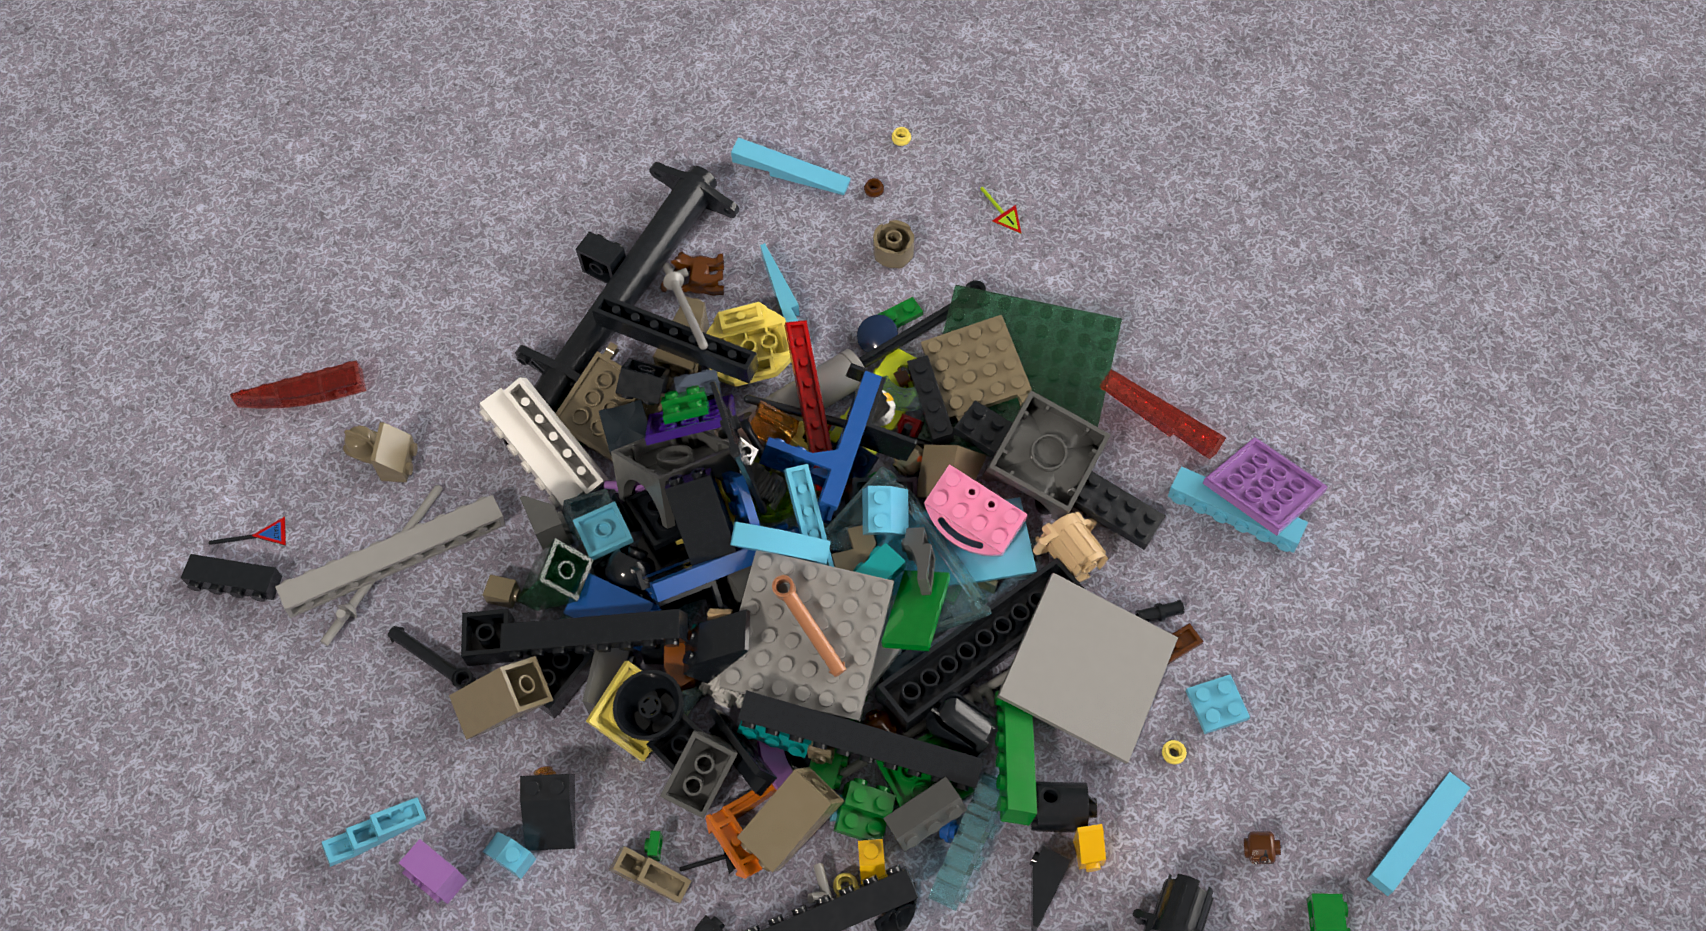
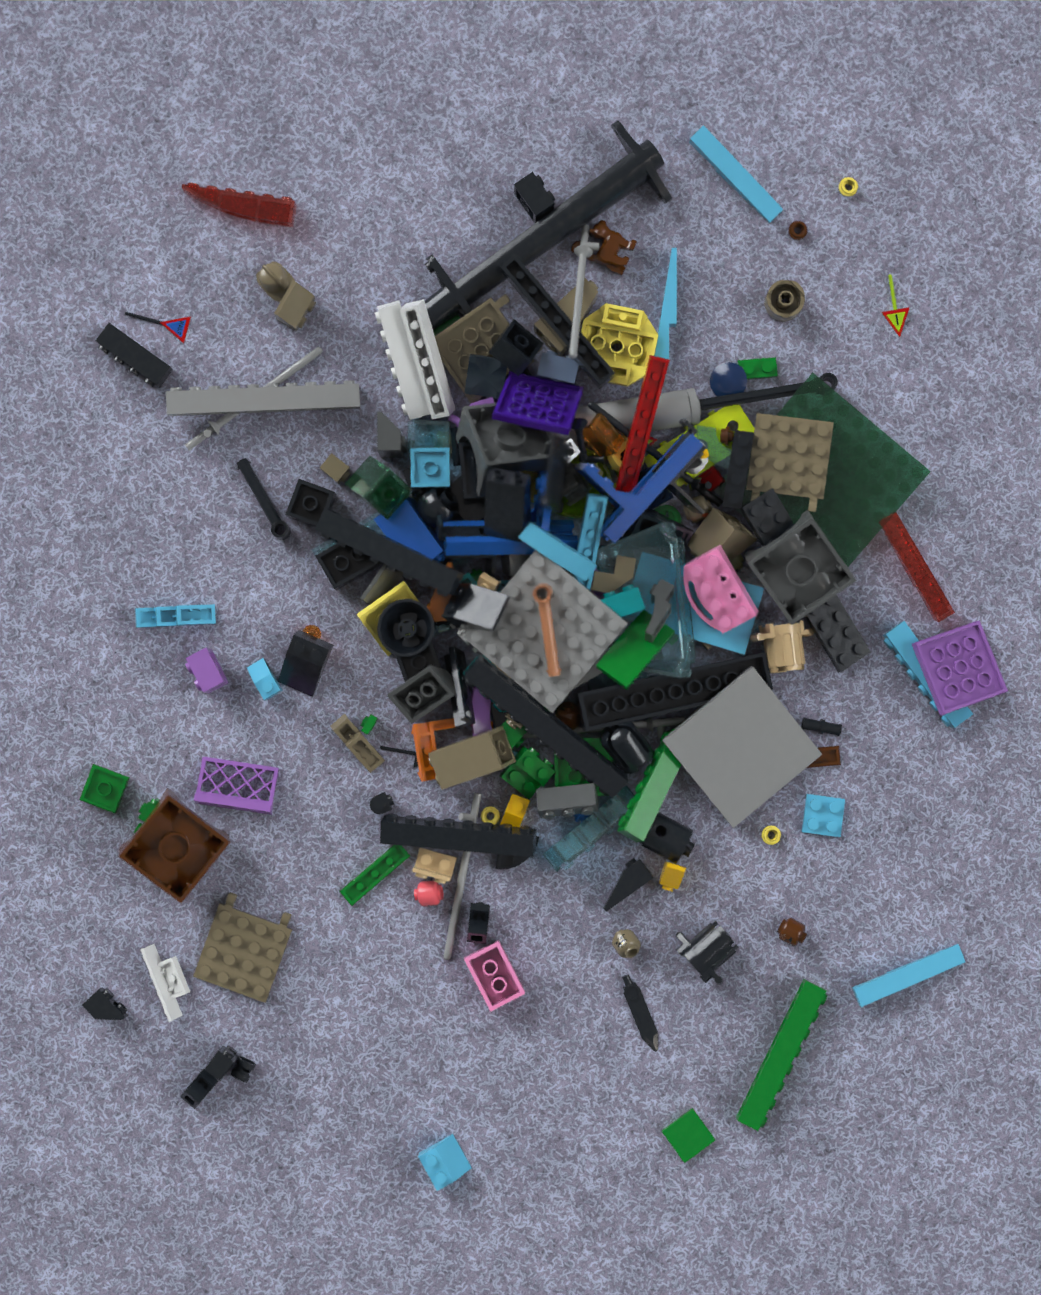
camera: 25 degrees right, 25 degrees up
(500, 697) = (302, 564): dark tan slope -> none
(684, 404) = (538, 389): green plate -> none
(885, 510) = (650, 558): medium azure slope -> none

